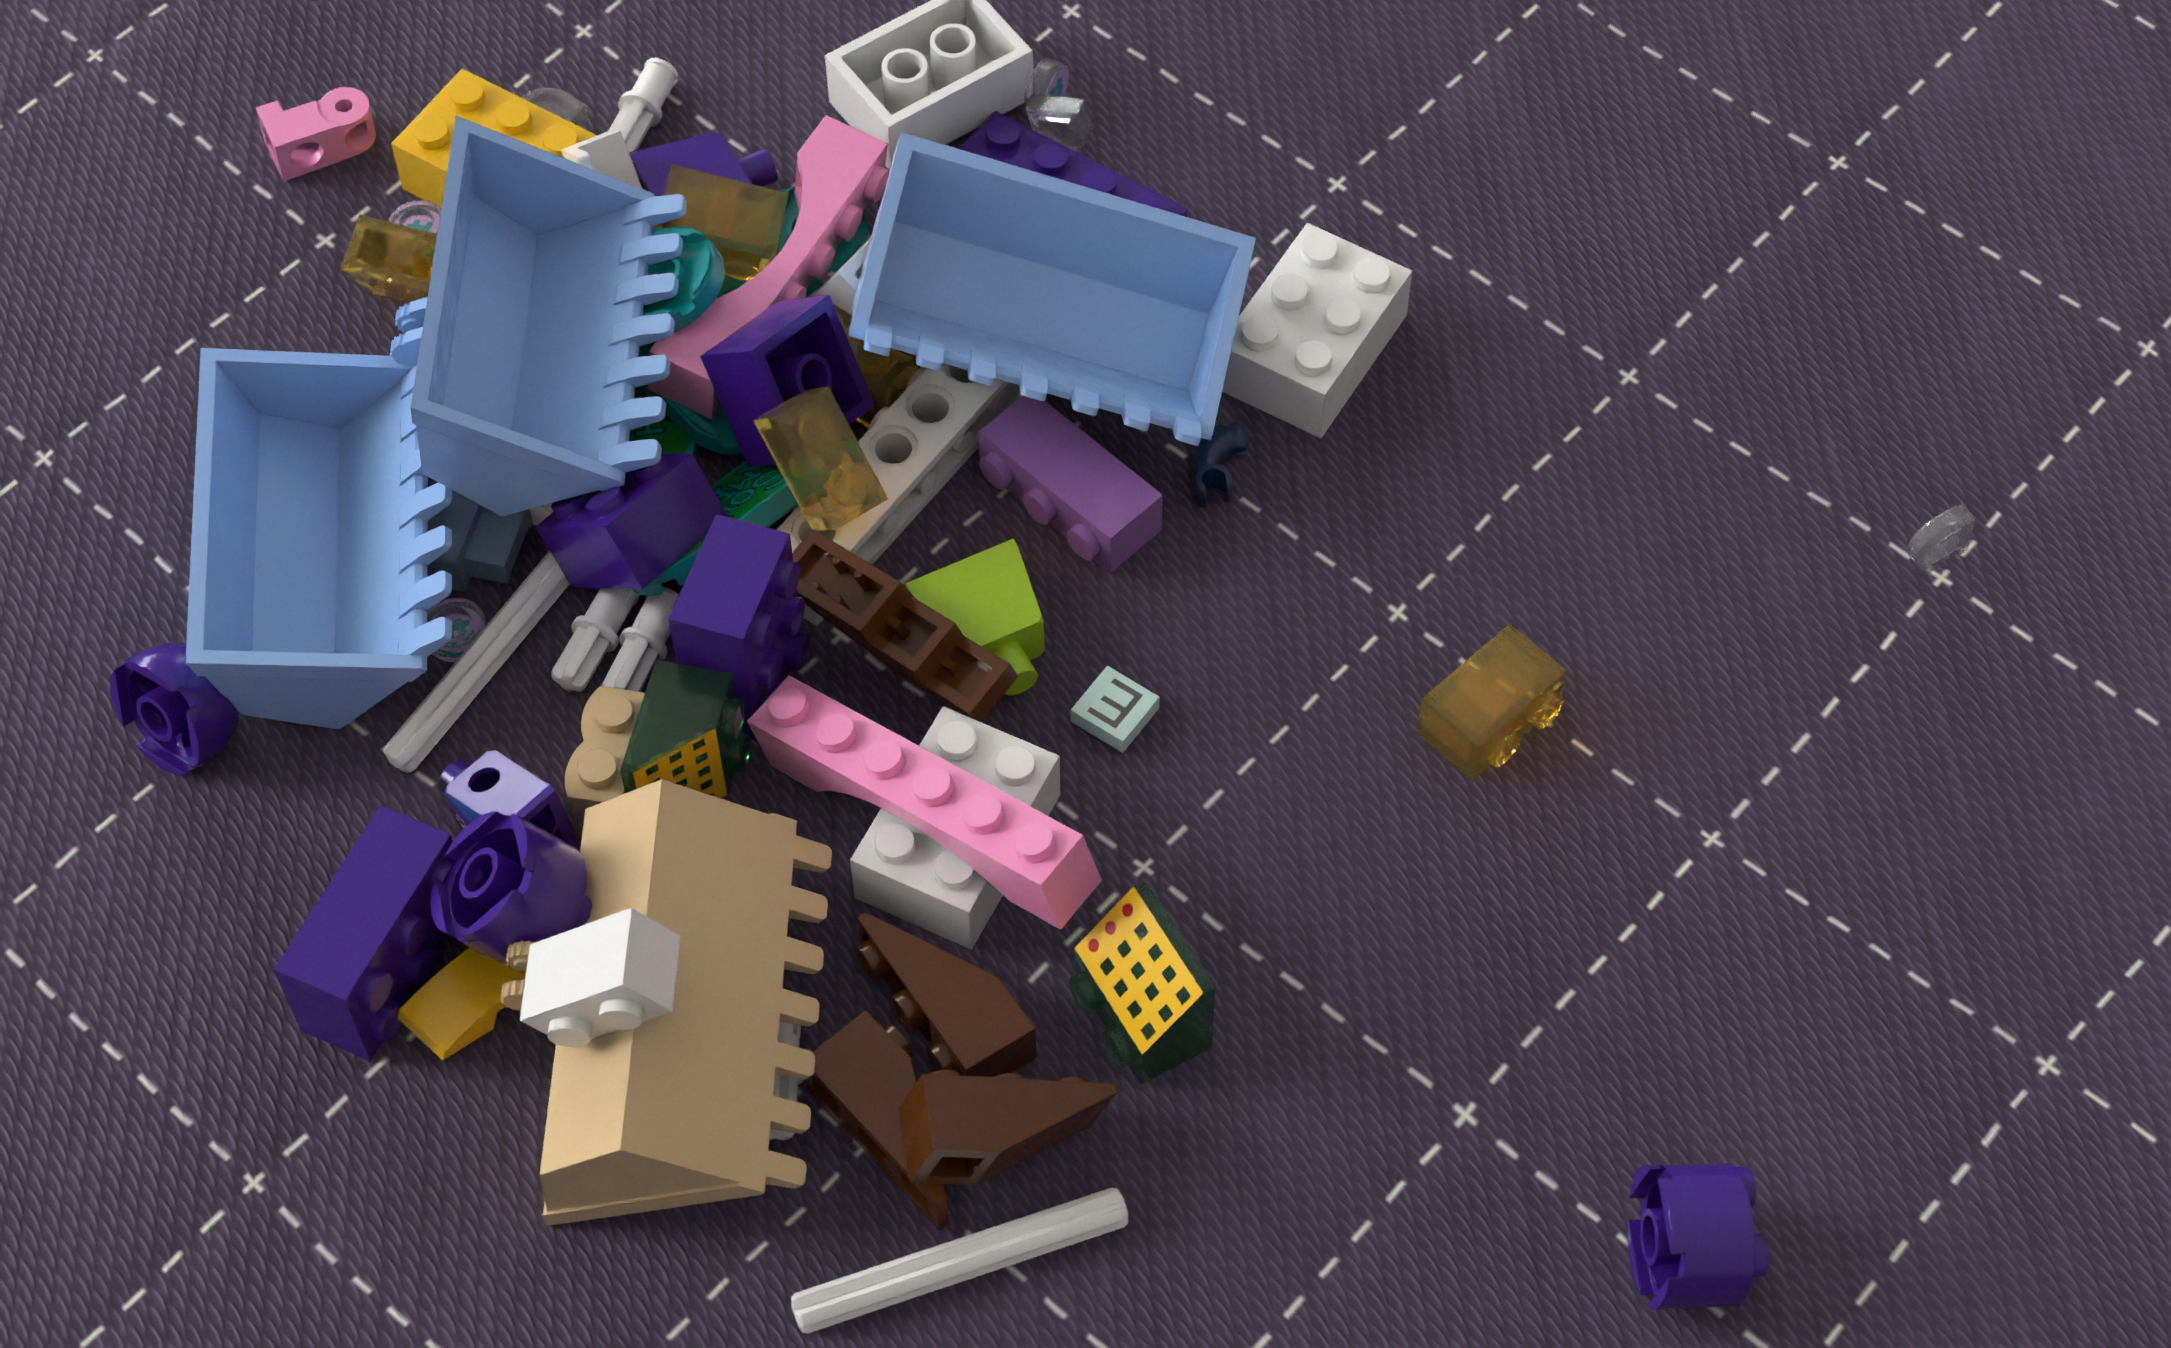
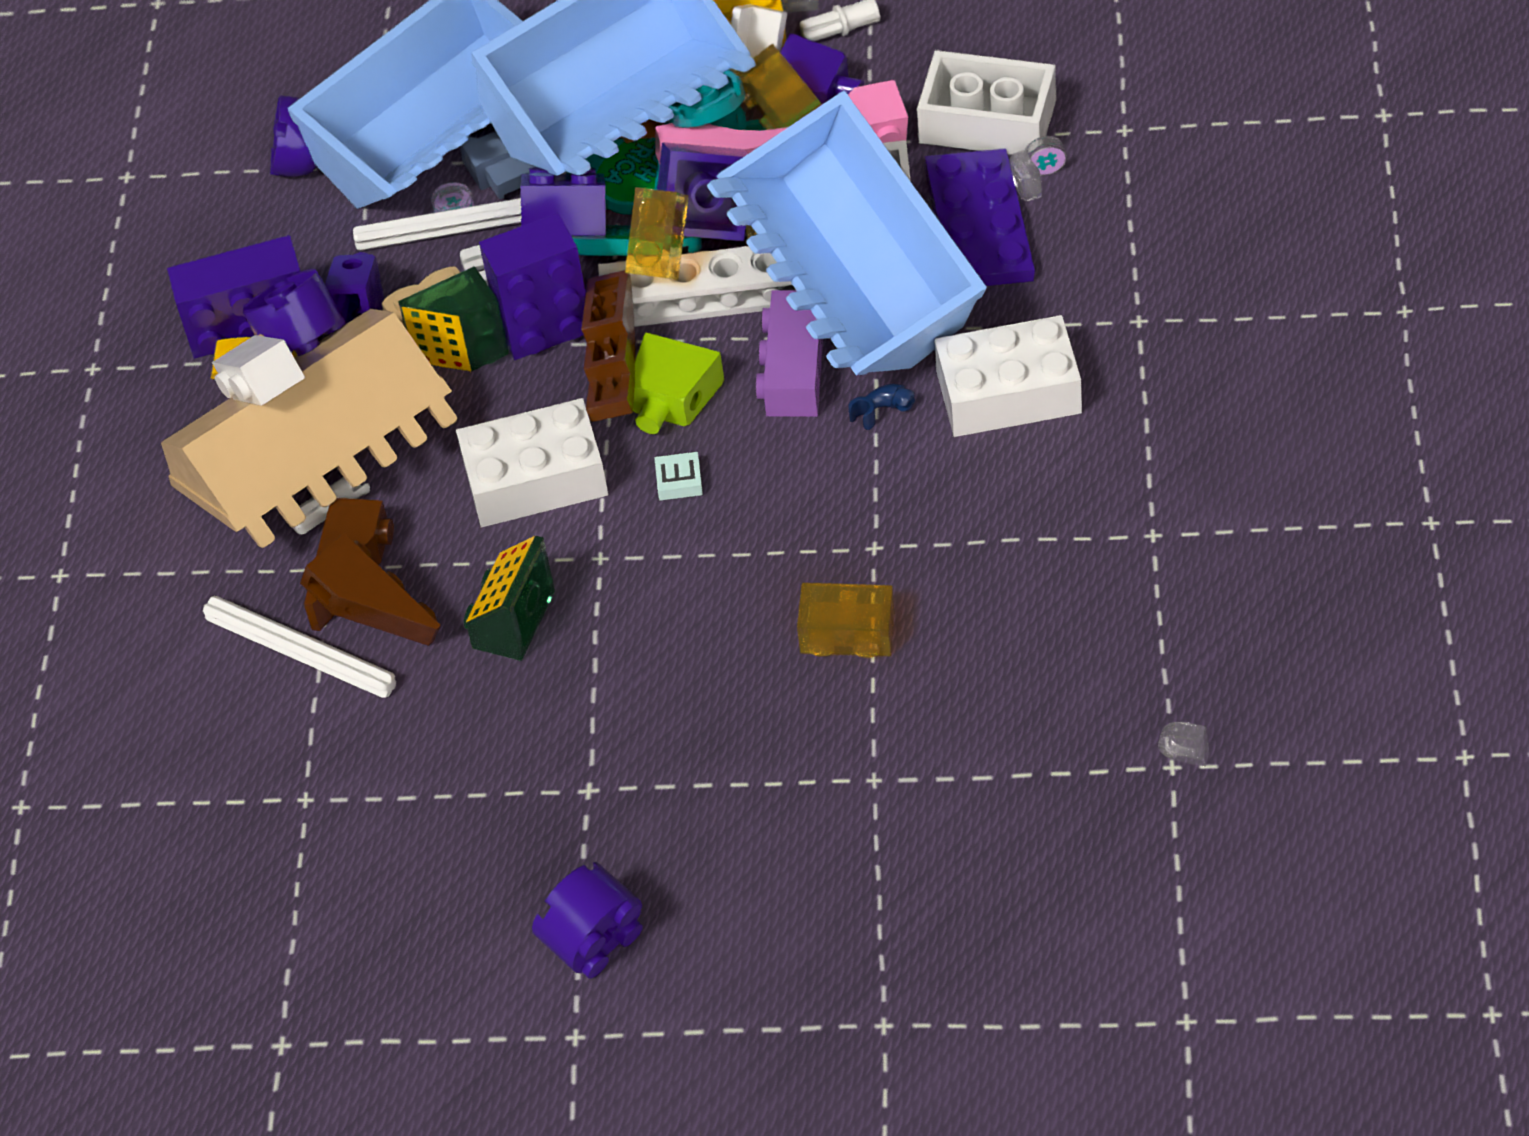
camera: 55 degrees right, 5 degrees down
(954, 1004) = (426, 546): reddish brown slope -> none
(1001, 838) = (510, 460): bright pink arch -> none

